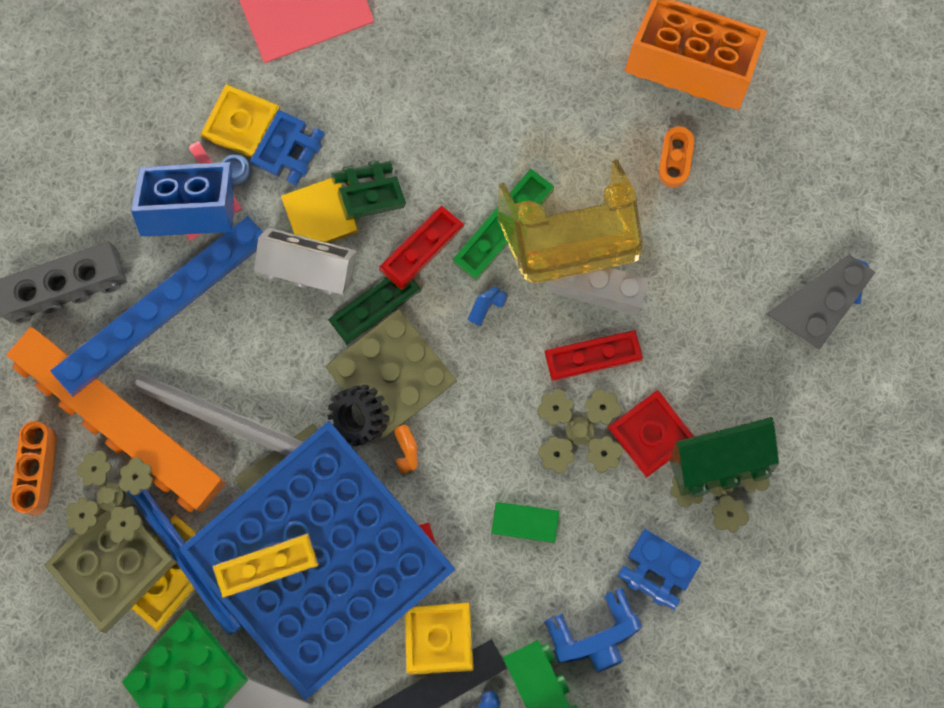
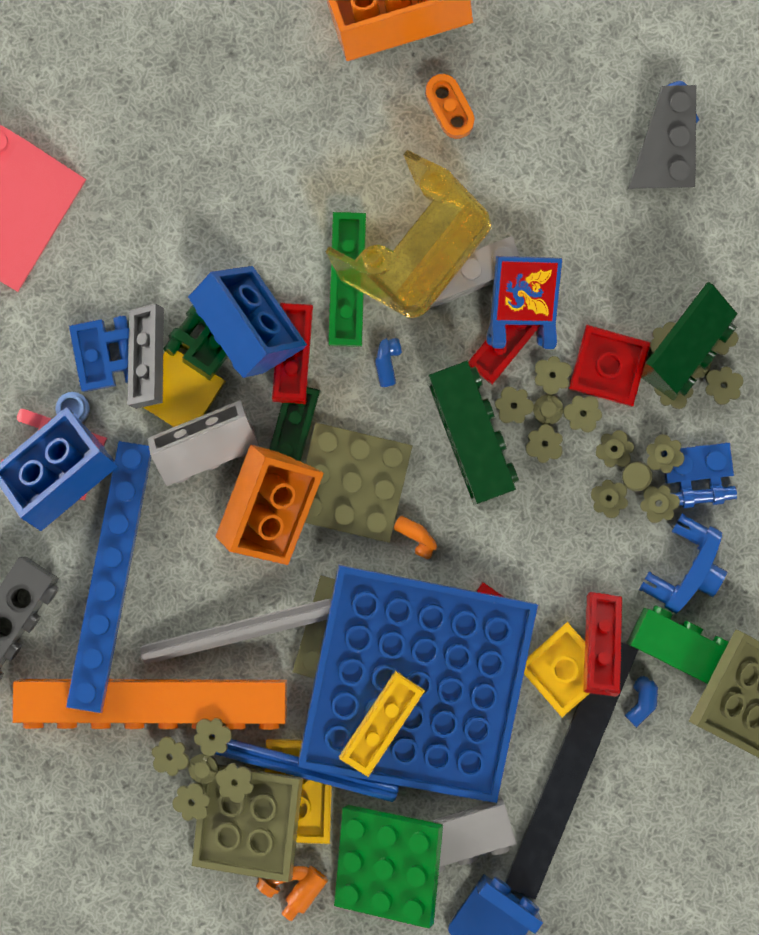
camera: 40 degrees left, 10 degrees up
(26, 455) = (116, 812): orange beam -> none
(105, 654) = (302, 895): none -> orange plant
(239, 121) = (41, 361): yellow tile -> none
(314, 169) = (145, 356): none -> plate
(315, 341) = (268, 505): none -> orange slope
(371, 408) = (356, 524): black tyre -> none
(405, 195) = (246, 320): none -> blue slope
(481, 640) = (603, 644): none -> red tile
(504, 399) = (471, 432): none -> dark green brick
(525, 522) = (561, 520): green tile -> none
(609, 533) = (637, 476): none -> olive plant
(626, 329) = (525, 295): none -> flag

